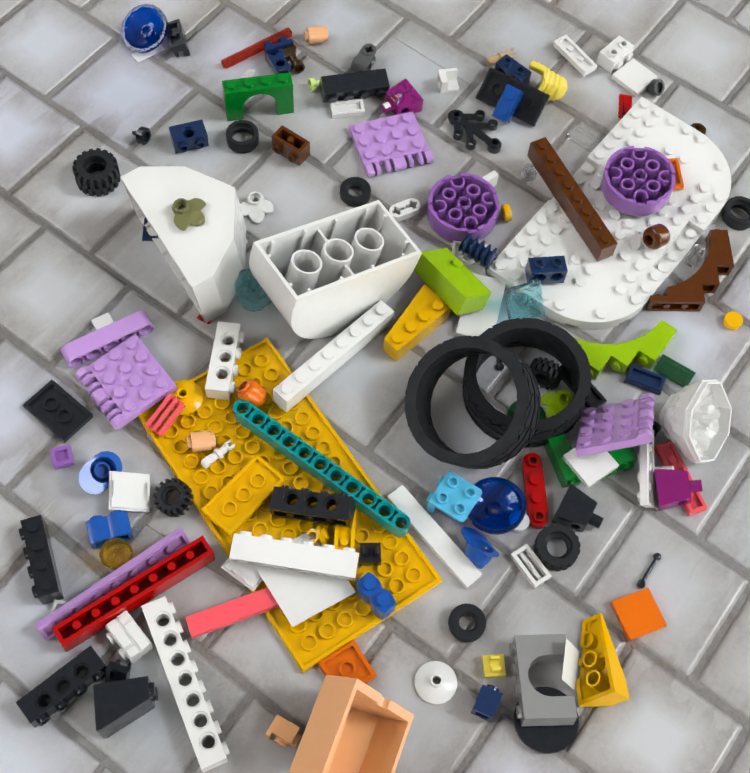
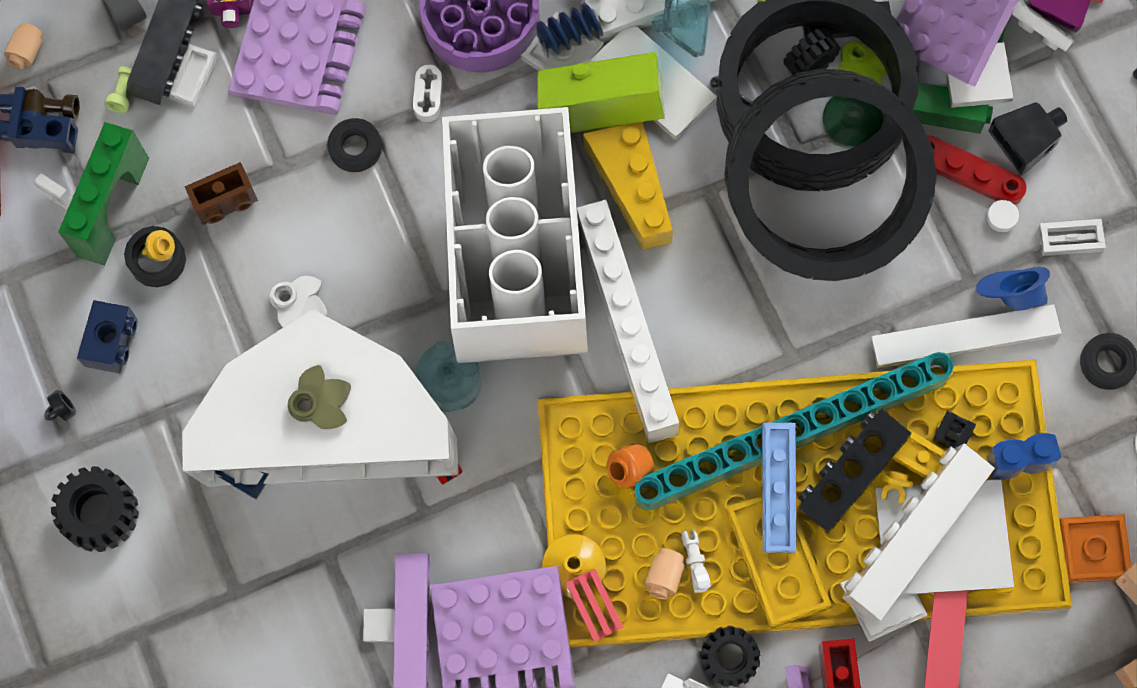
camera: 50 degrees left, 10 degrees up
(225, 333) = (584, 513): white brick -> none
(245, 131) = (159, 246): none -> yellow plate
(279, 471) = (778, 488): none -> light blue tile
(454, 497) = (931, 279): medium azure bracket -> none
(502, 496) = (974, 213): clear blue dish -> none
(563, 533) = (1065, 166): black tyre -> none

